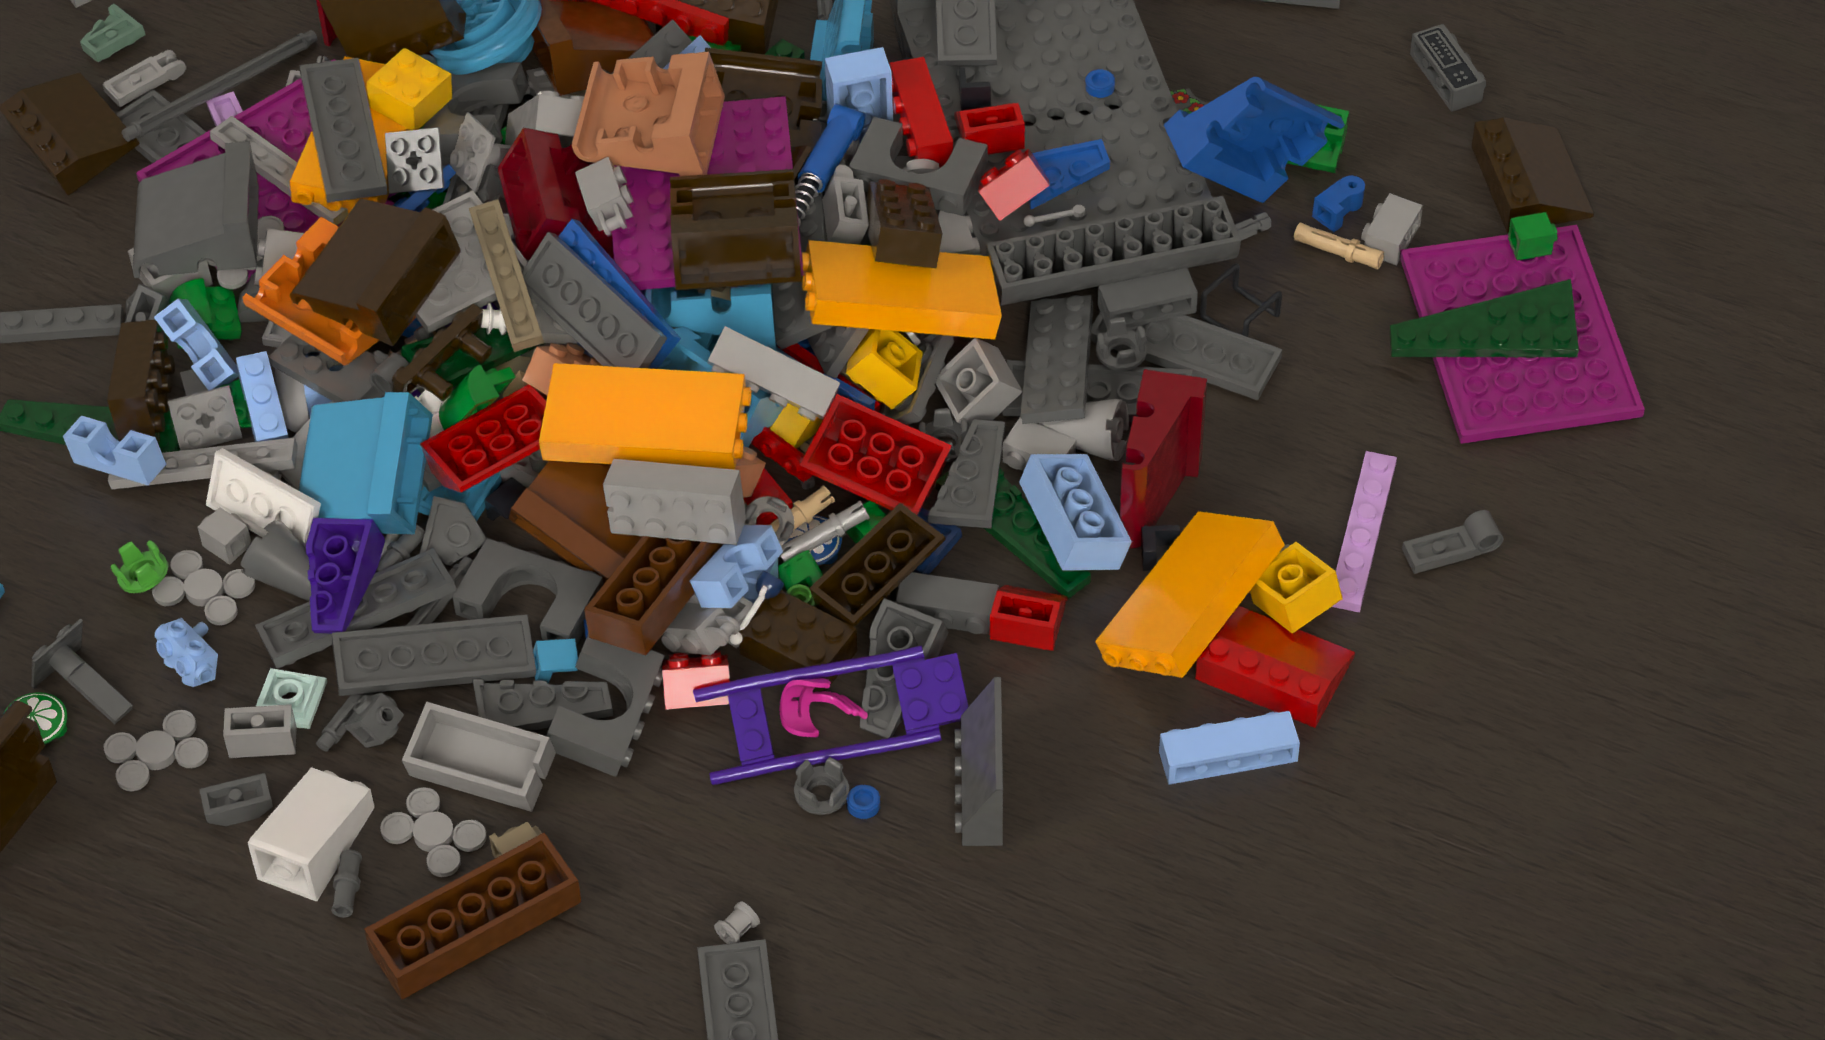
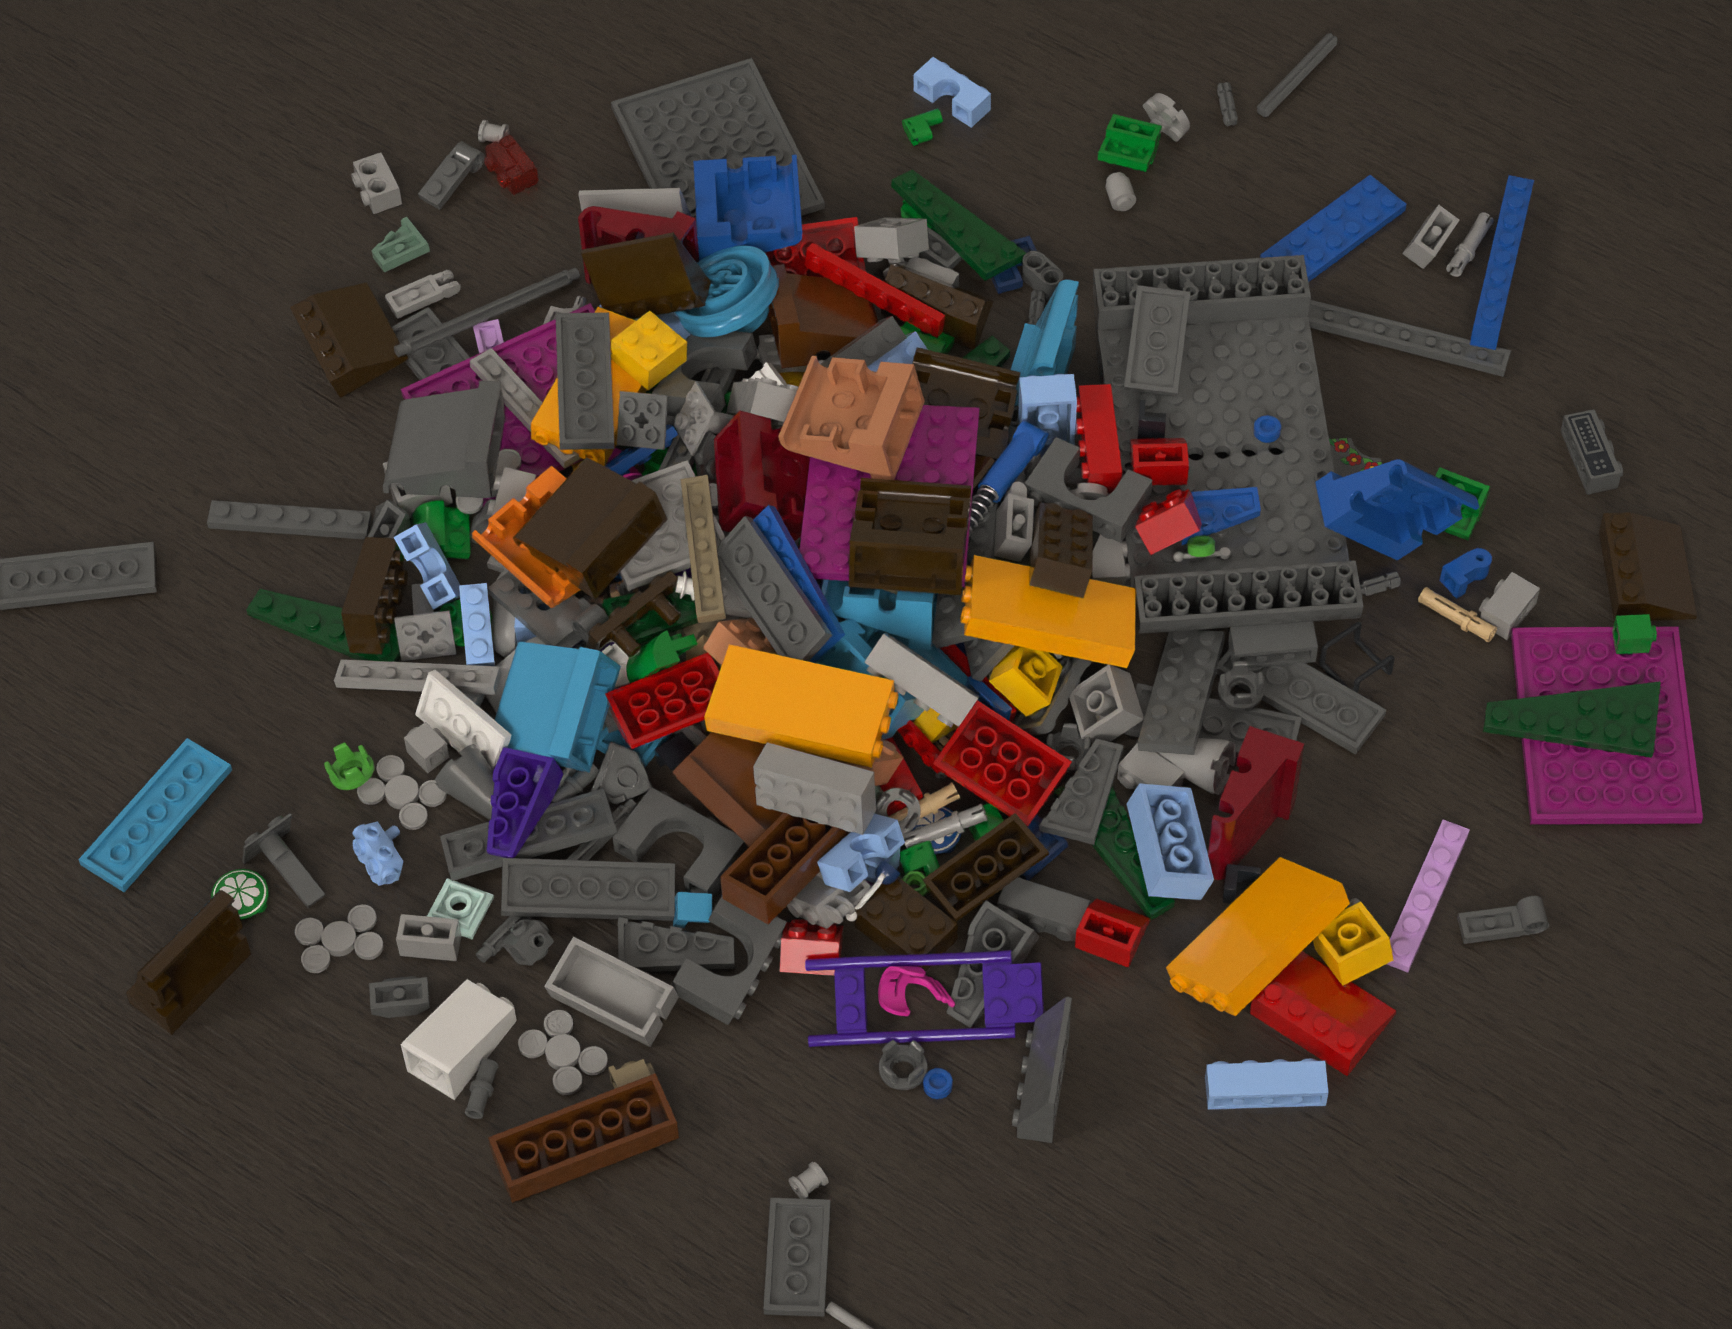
camera: 10 degrees right, 5 degrees up
(133, 458) = (356, 665): light blue arch -> none
(605, 195) = (801, 486): light grey brick -> none
(1052, 206) = (1201, 546): none -> bright green tile

